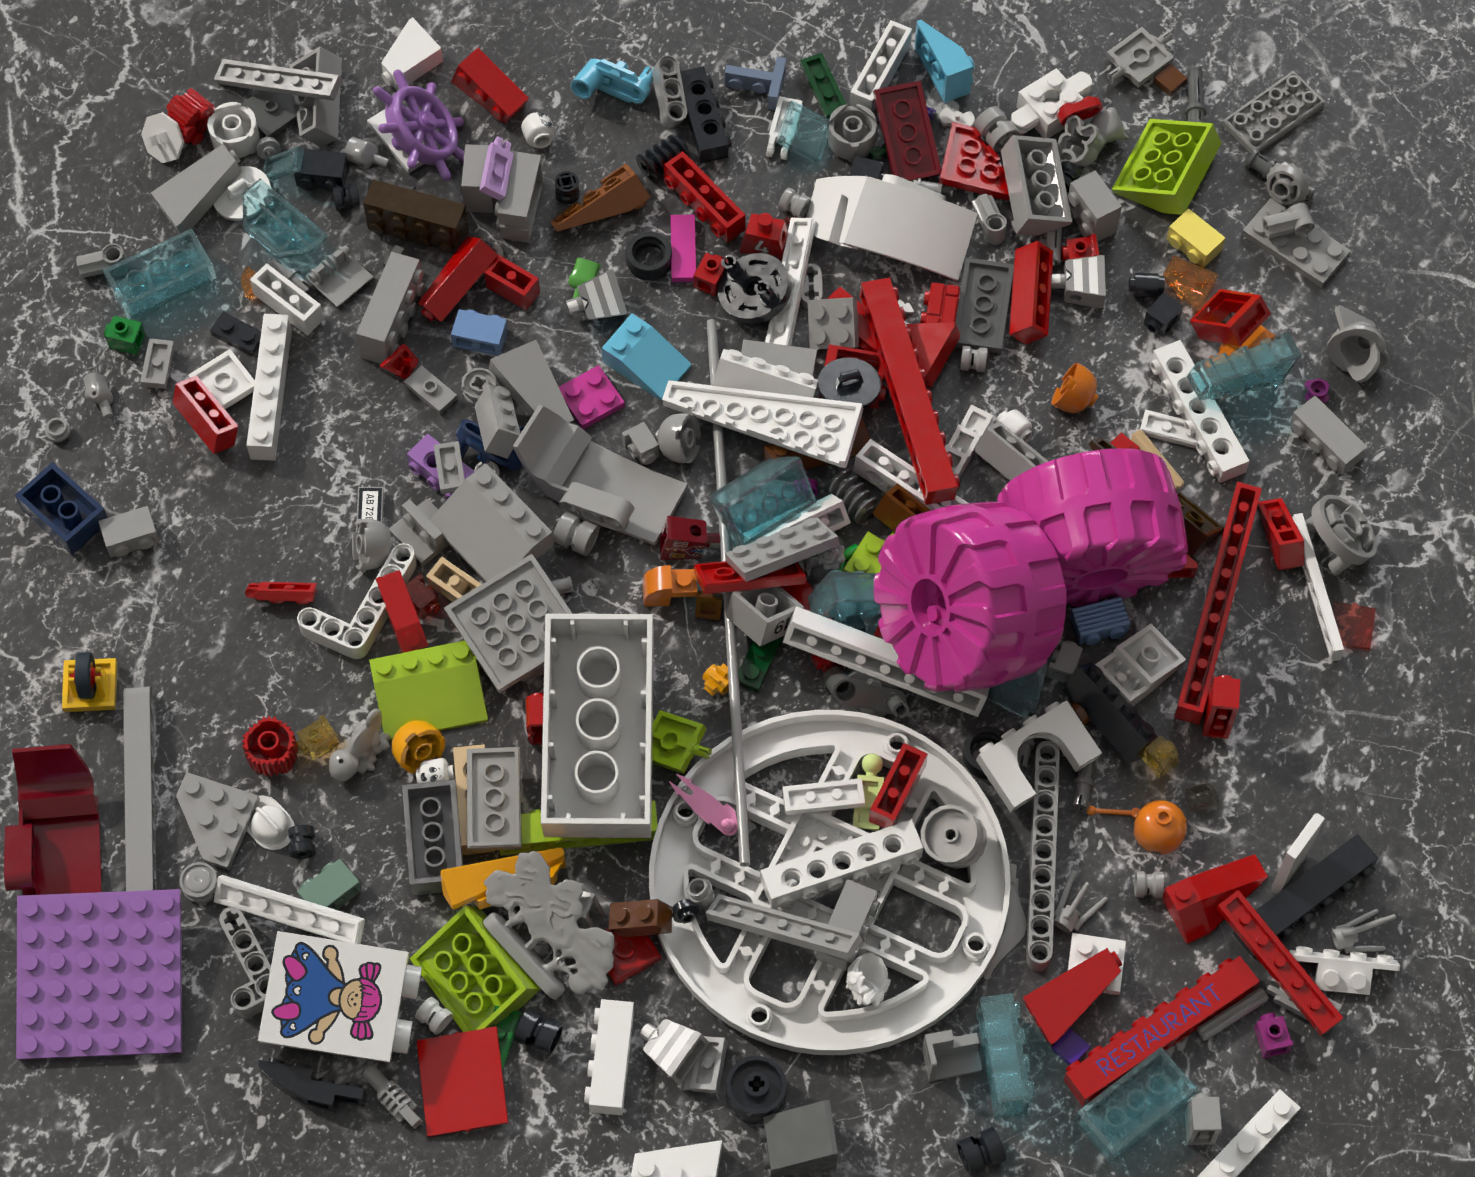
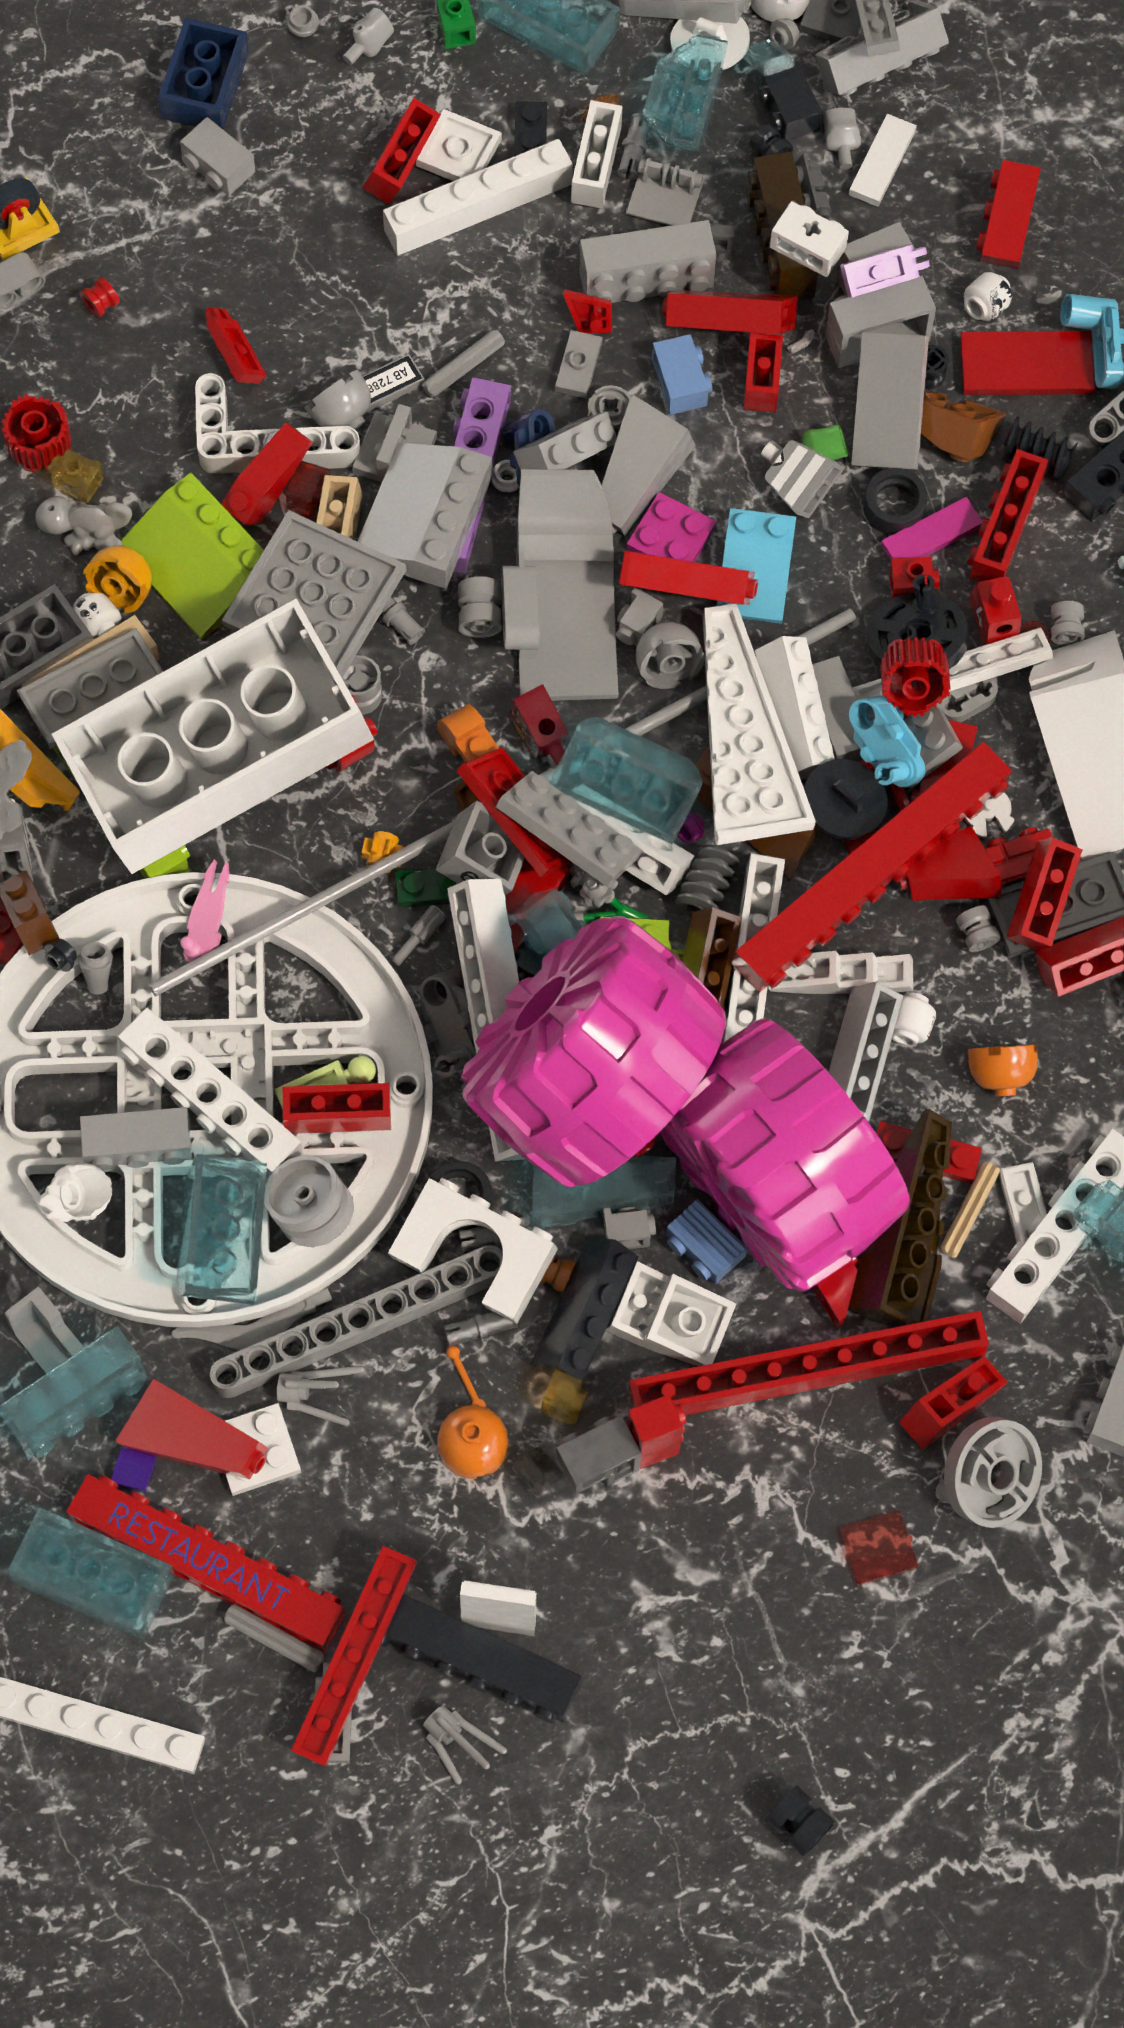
camera: 60 degrees right, 5 degrees up
(157, 363) = (441, 72): light grey plate -> none
(188, 658) = (99, 297): none -> red wheel
(385, 458) = (463, 363): none -> light grey axle
(411, 53) = (999, 111): white slope -> none
(420, 125) = (898, 163): medium lavender piece -> none
(448, 198) = (809, 238): none -> white brick
(449, 466) = (476, 425): light grey plate -> none
(584, 218) = (890, 400): none -> light grey tile
(596, 134) = (1027, 363): none -> red tile
(635, 397) = (688, 578): none -> red slope
(676, 741) = (273, 841): lime plate -> none
(784, 927) = (90, 1067): light grey plate -> none
(786, 685) = (420, 932): none -> light grey axle
(793, 297) = (915, 675): none -> red brick
(823, 796) = (285, 1034): white plate -> none
(825, 337) = (886, 741): none -> medium azure piece
(948, 900) = (221, 1229): none -> clear light blue windscreen
(981, 304) = (1044, 893): none -> red brick
(1149, 884) = (387, 1462): light grey wheel -> none
(1195, 899) = (402, 1525): red wedge -> none
(1203, 1120) = (109, 1658): light grey brick -> none
(1217, 748) = (599, 1455): none -> flat silver brick
(1271, 1044) = (264, 1709): magenta brick -> none
(1319, 594) = (897, 1481): white tile -> none
(1344, 972) = (398, 1742): white bracket -> none

